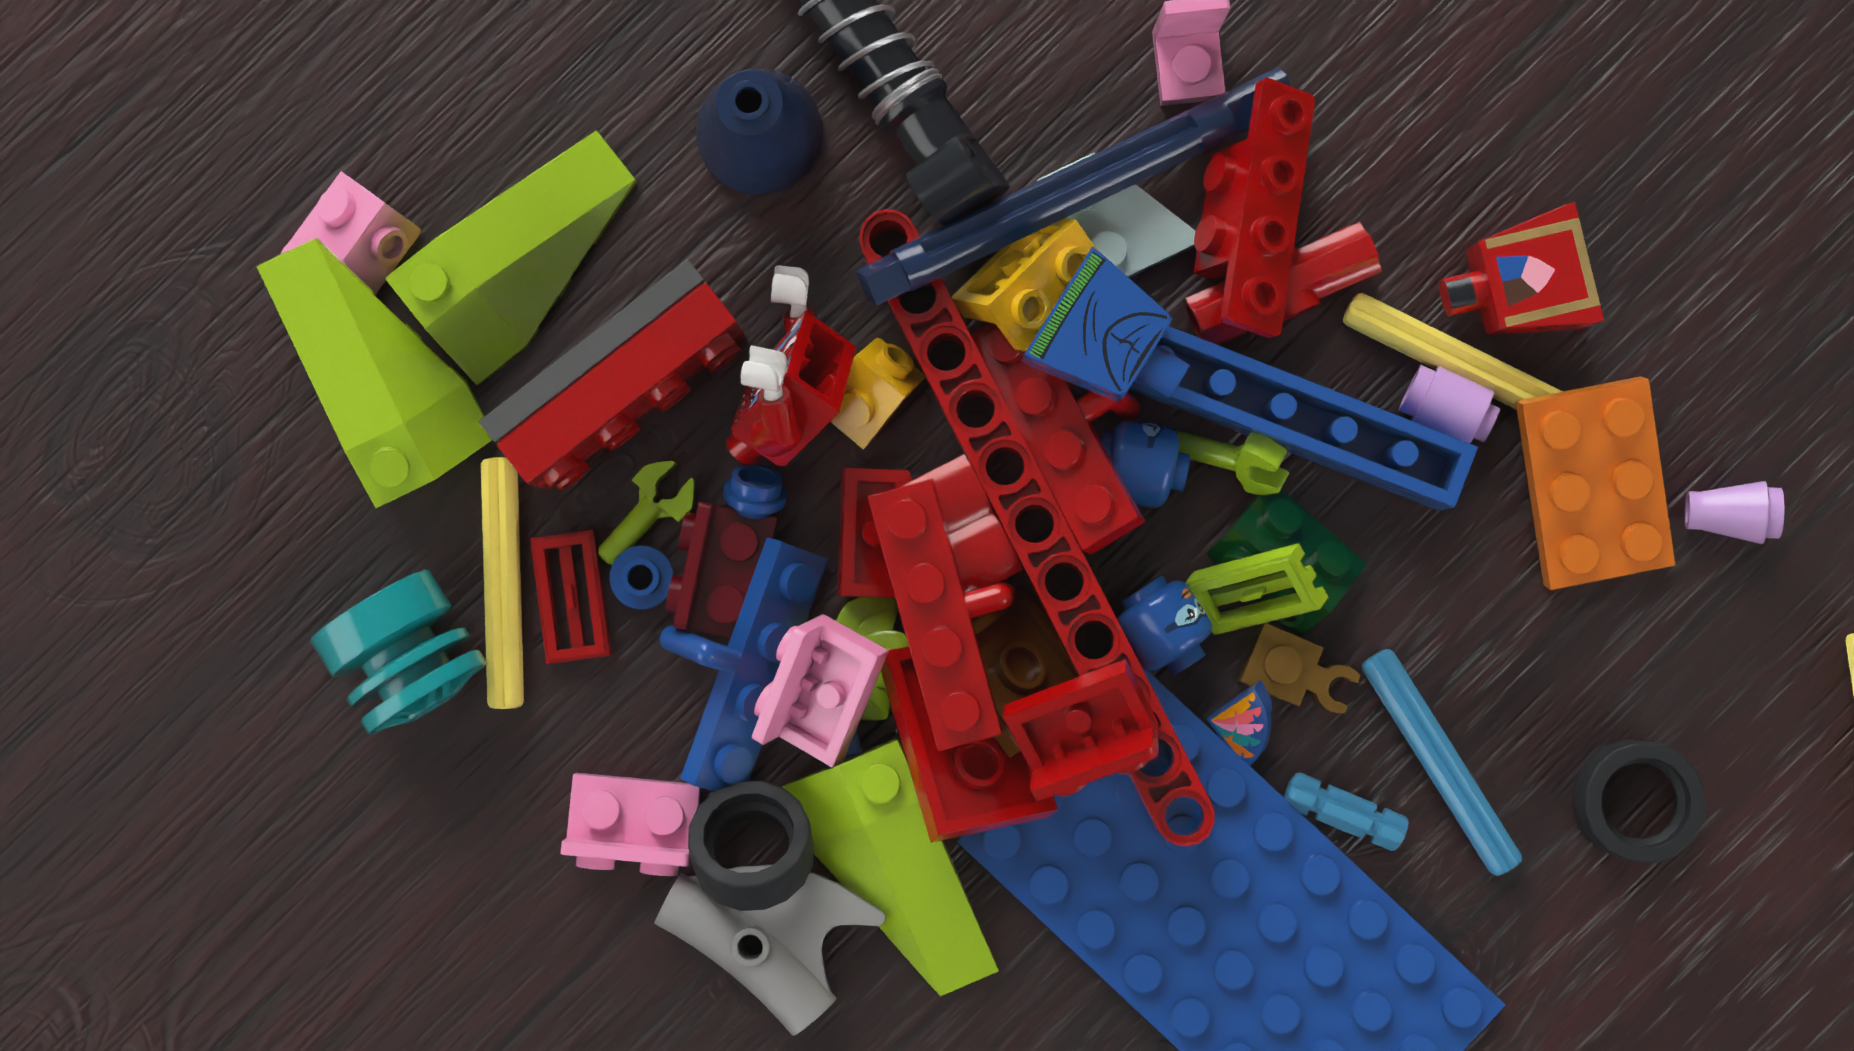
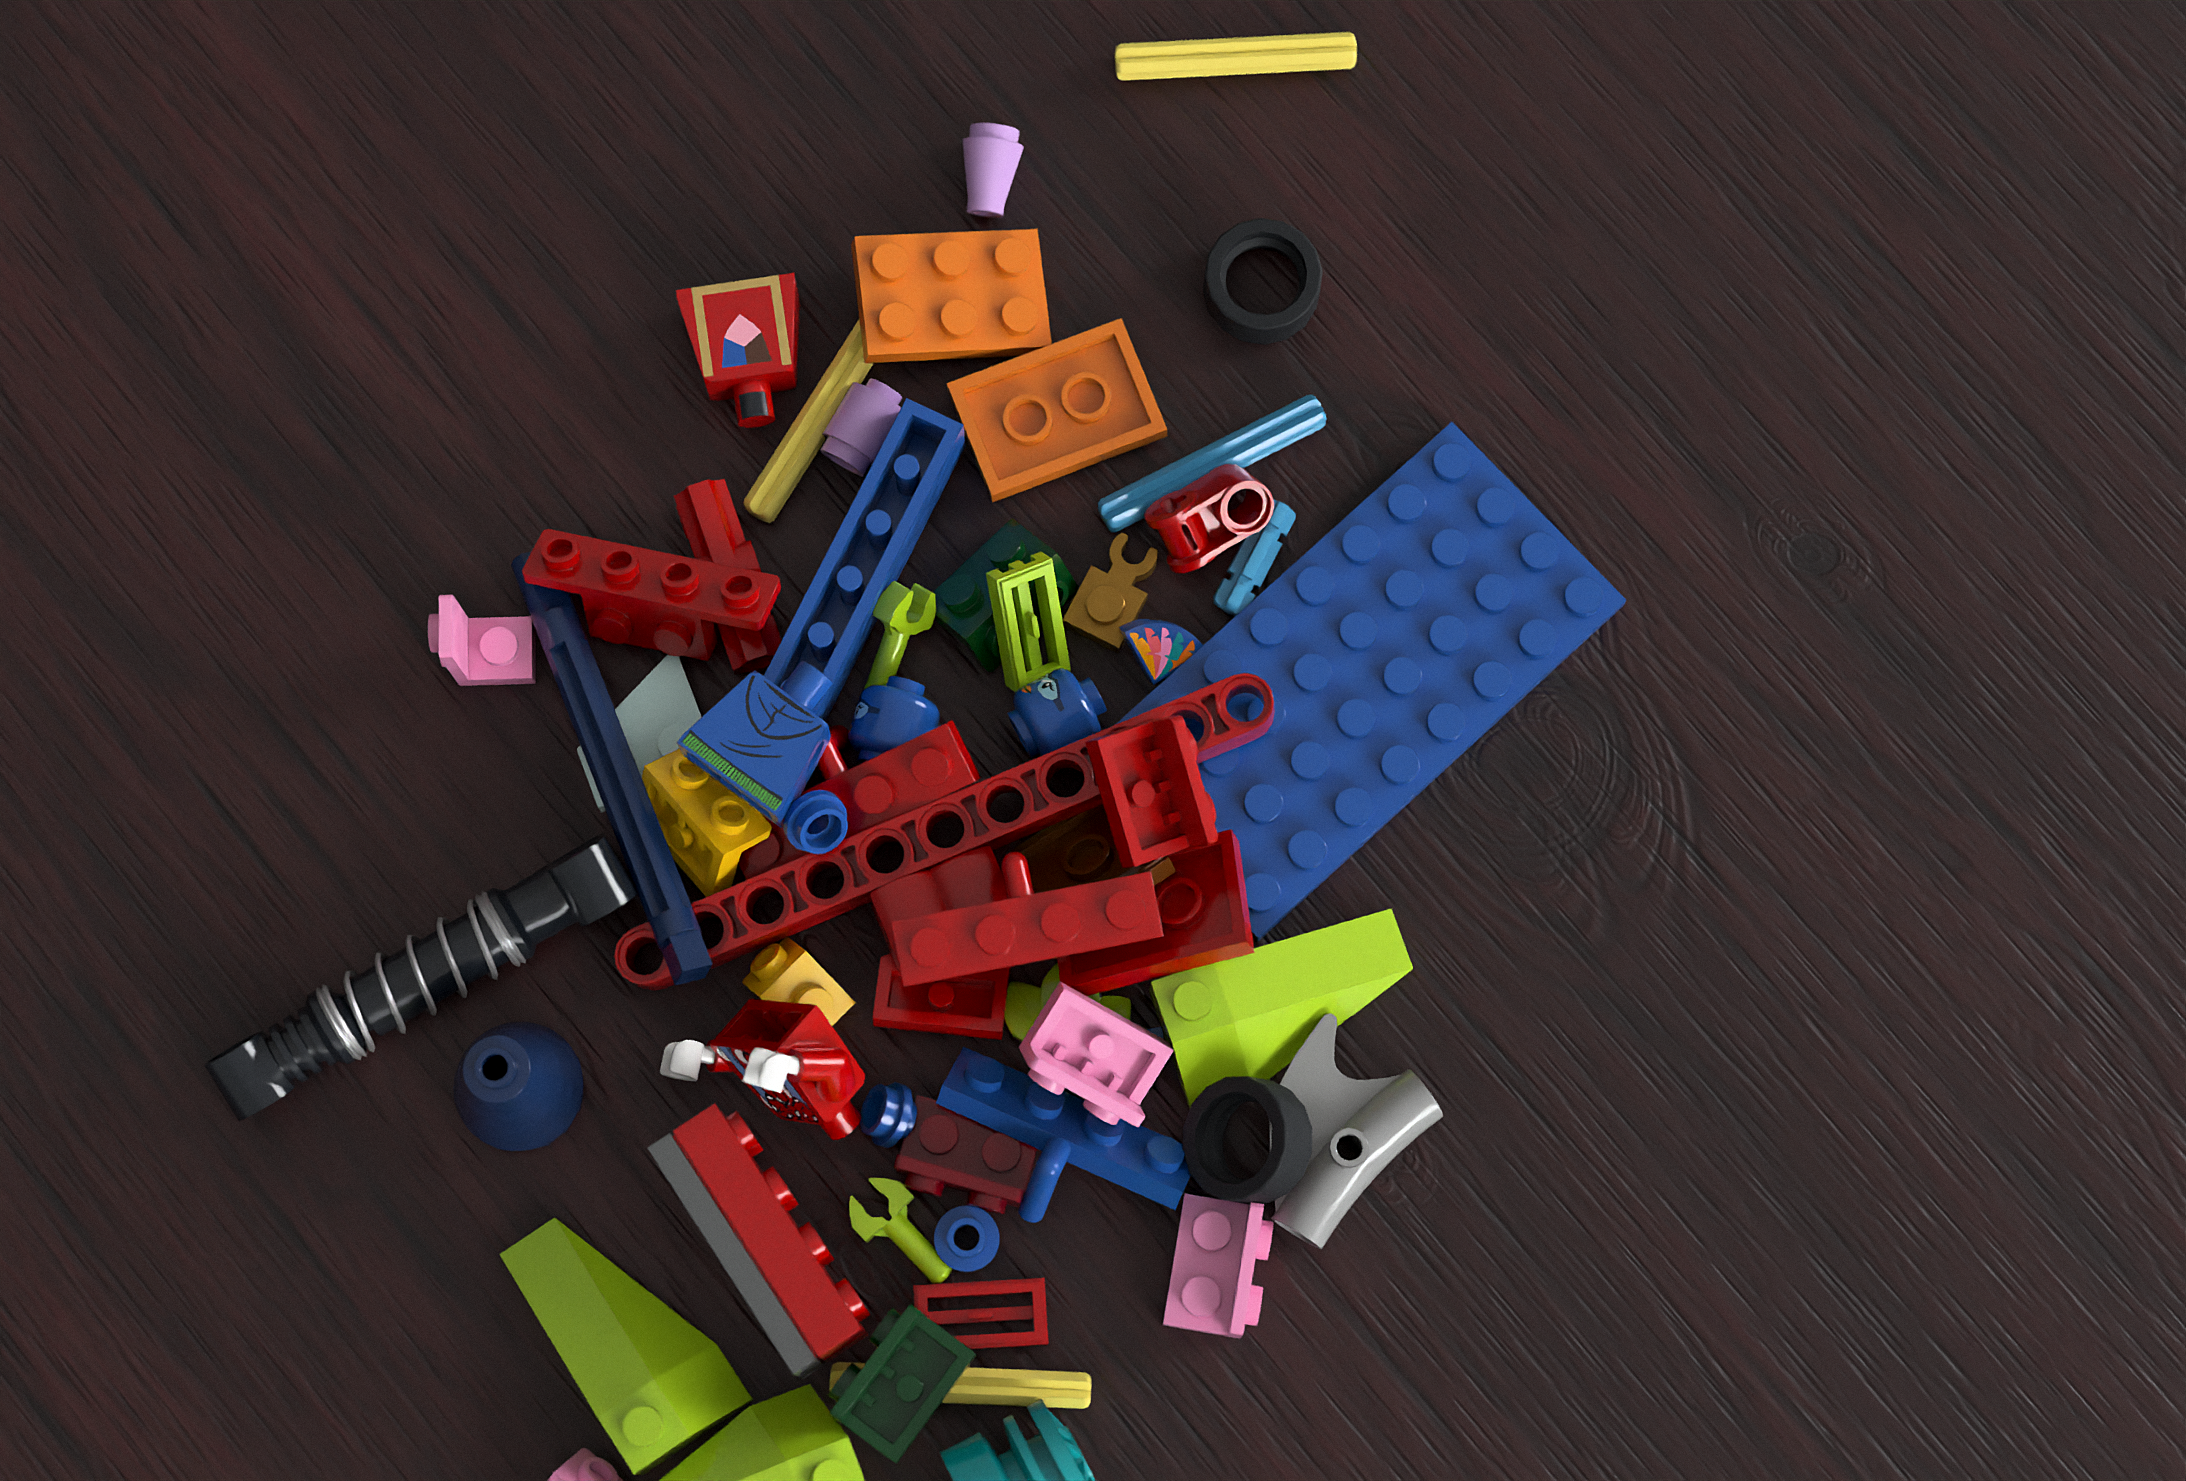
camera: 85 degrees left, 10 degrees down
(490, 527) = (900, 1382): none -> dark green bracket
(1028, 395) = (816, 822): none -> blue plate
(1381, 760) = (1197, 521): none -> red piece
(1484, 600) = (1057, 410): none -> orange plate

